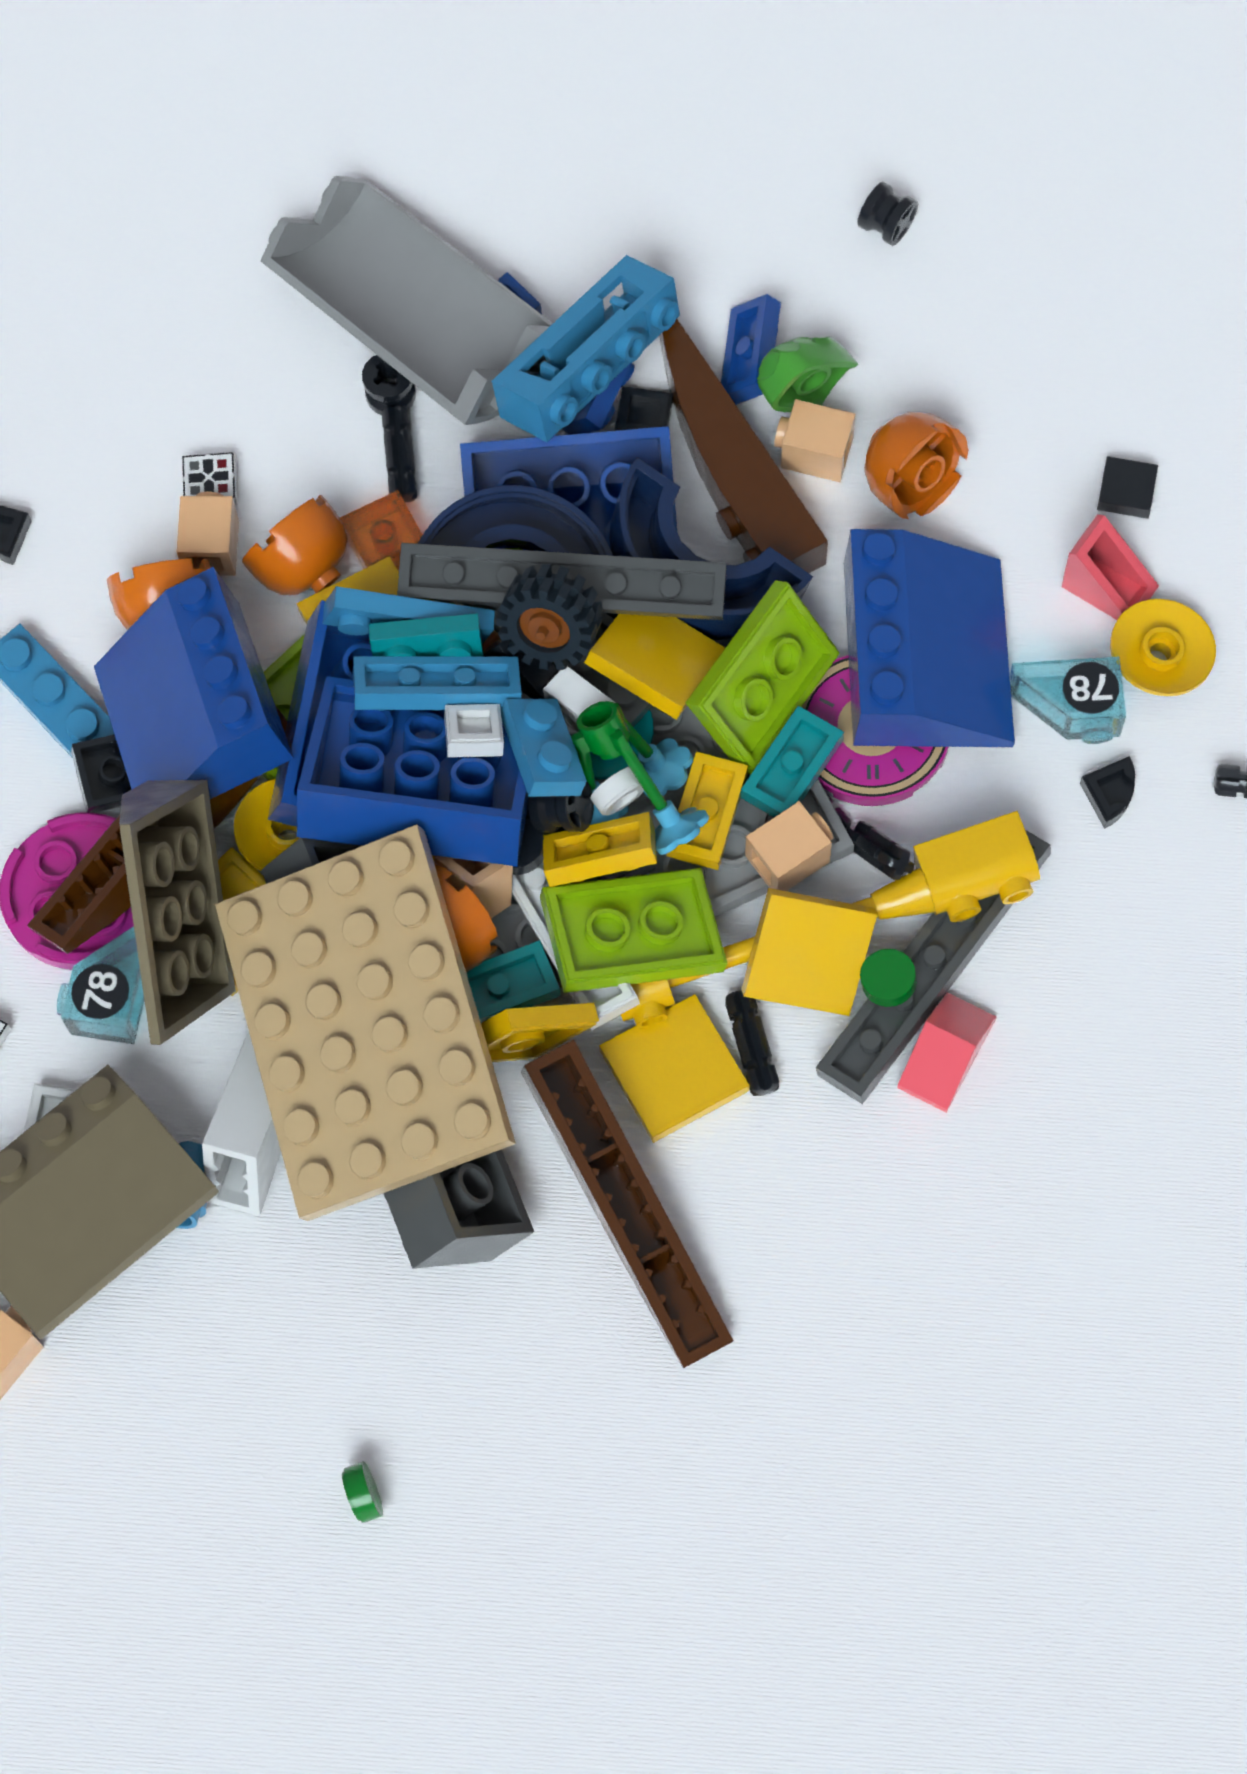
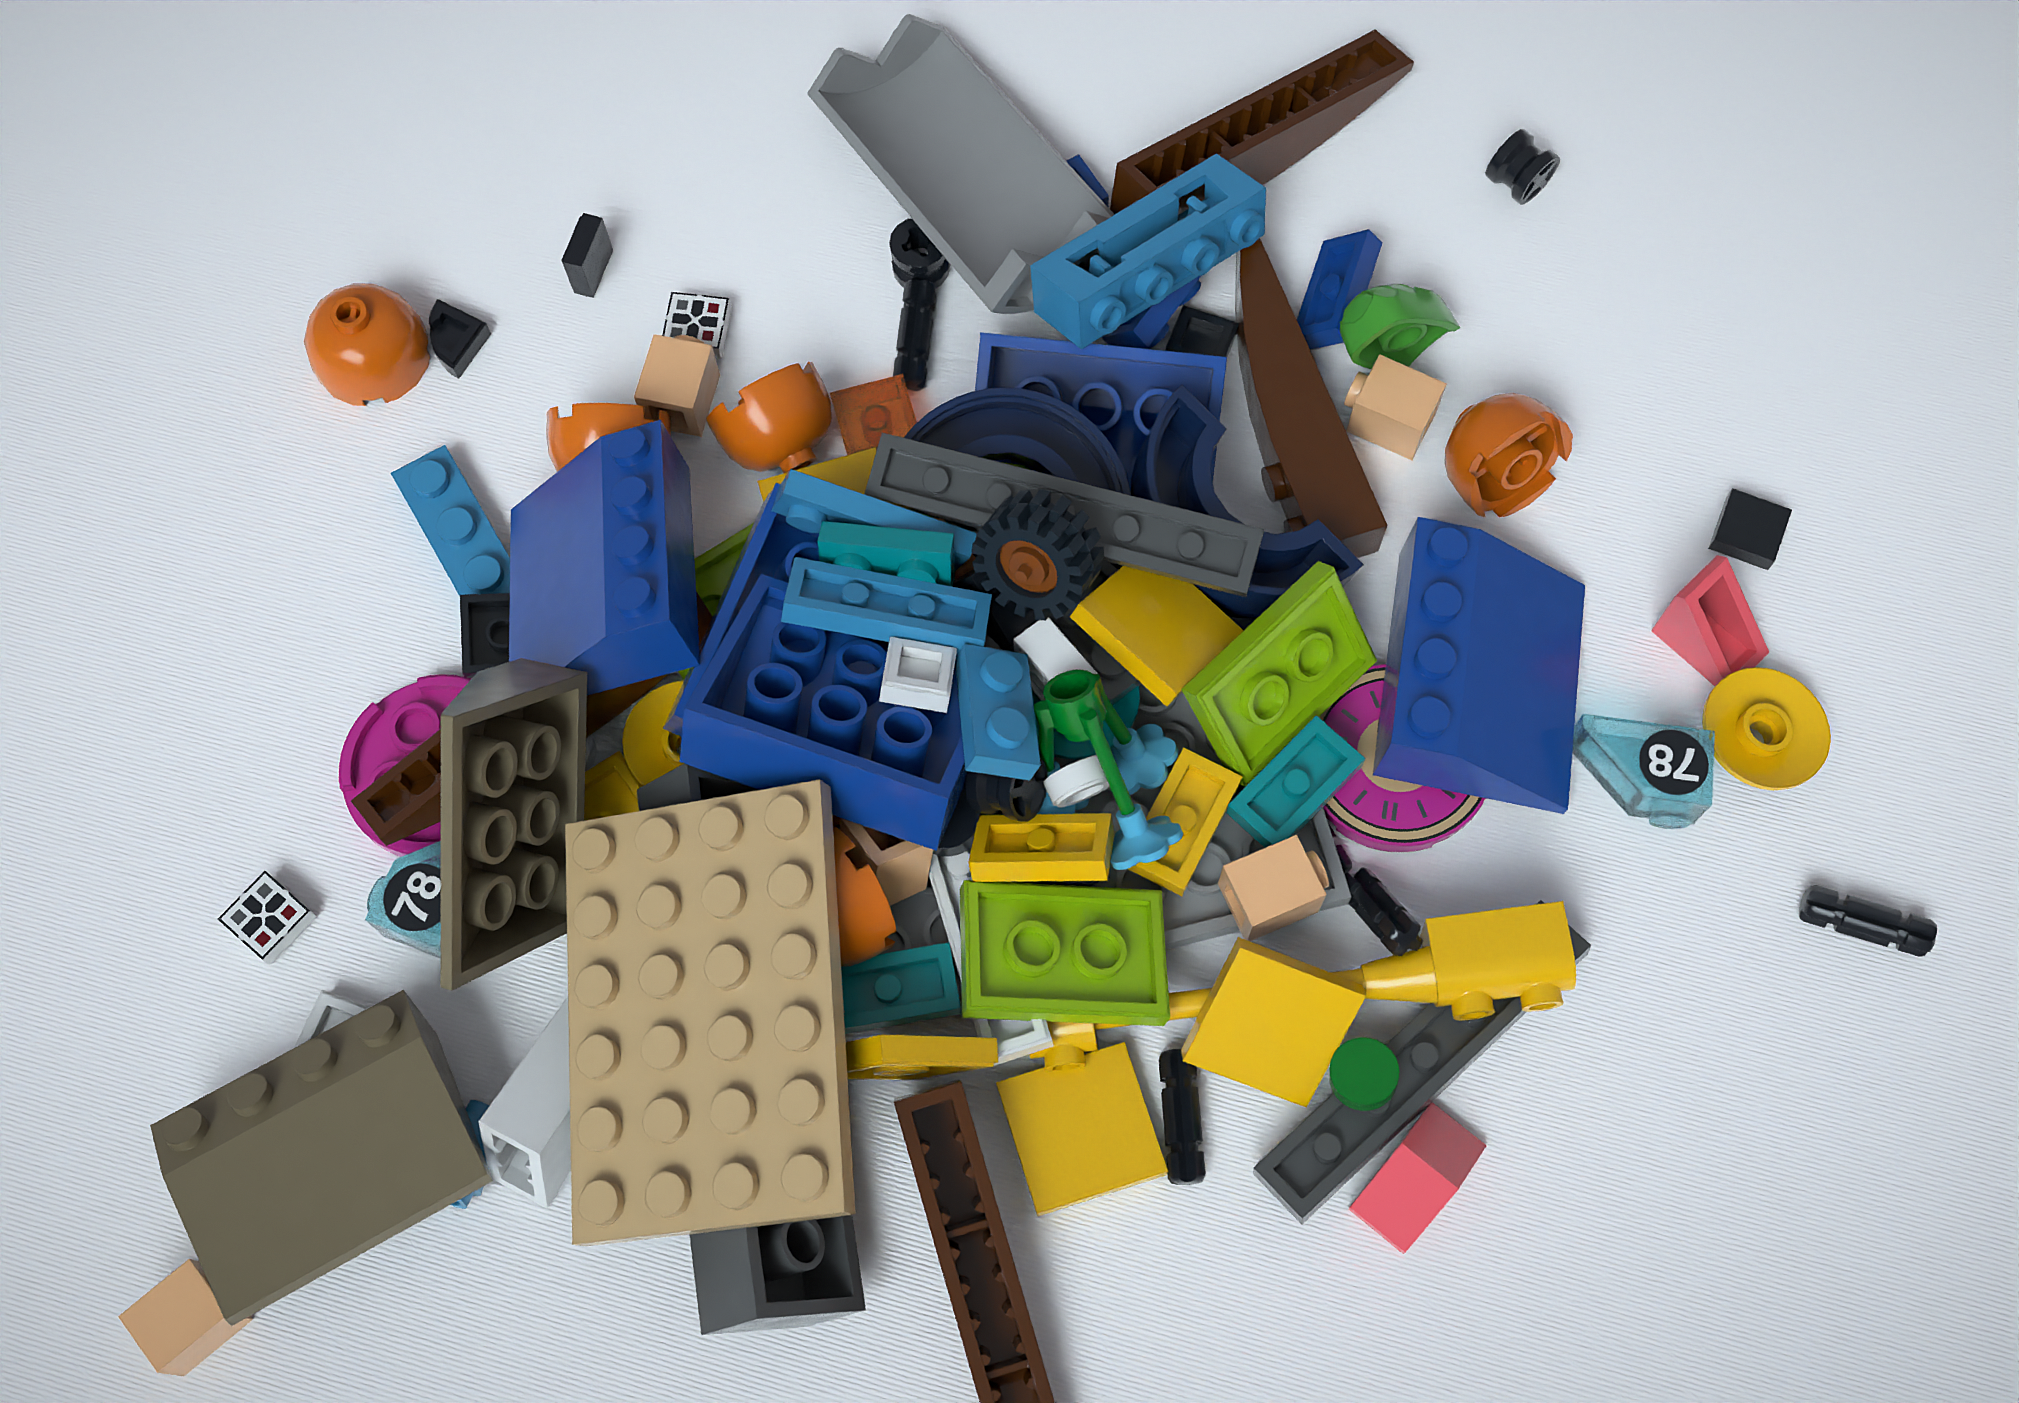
camera: 10 degrees right, 0 degrees up
(102, 438) = (587, 255): none -> black tile
(667, 217) = (1272, 125): none -> reddish brown slope
(1110, 790) = (1672, 889): black tile -> none

